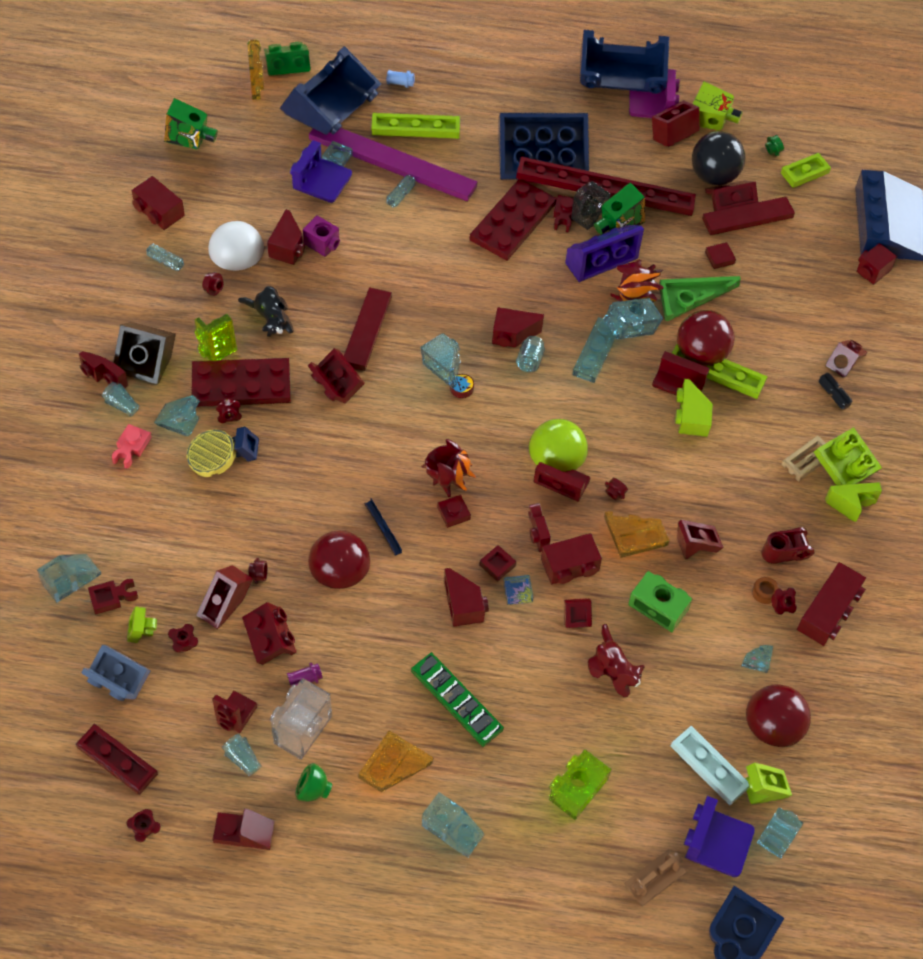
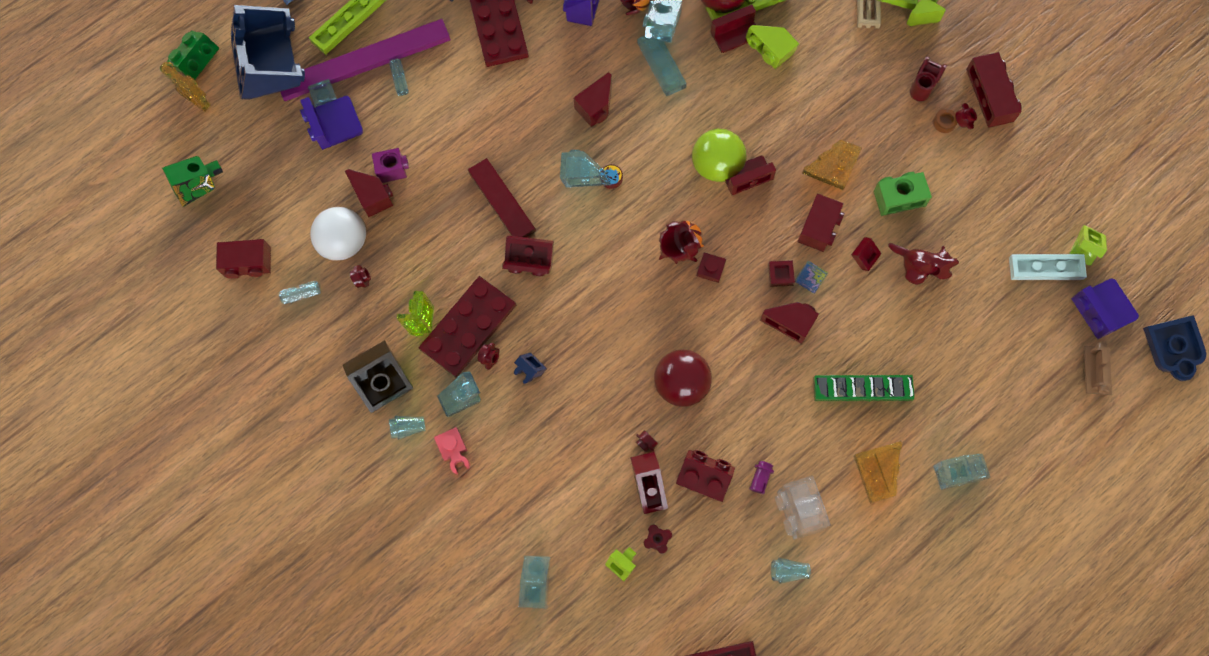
camera: 40 degrees left, 15 degrees up
(100, 368) = (361, 420): dark red slope -> none
(108, 596) = (575, 567): dark red plate -> none
(116, 673) = (650, 611): sand blue bracket -> none
(211, 453) = (515, 397): tile -> none
(233, 712) = (750, 548): dark red bracket -> none
(244, 830) = (848, 615): dark red slope -> none
(272, 308) = (421, 252): black animal -> none
(313, 784) = (853, 540): green brick -> none
(390, 538) = (681, 325): dark blue piece -> none
(530, 354) = (629, 109): clear light blue brick -> none
(539, 533) = (779, 223): dark red plate -> none
(573, 798) = (1002, 350): clear neon green brick -> none
(616, 489) = (788, 147): dark red plate -> none
(697, 537) = (875, 130): dark red slope -> none
(758, 658) = (992, 169): clear light blue tile -> none
(778, 715) = (1042, 193): dark red piece -> none
(780, 832) = (1130, 265): clear light blue brick -> none

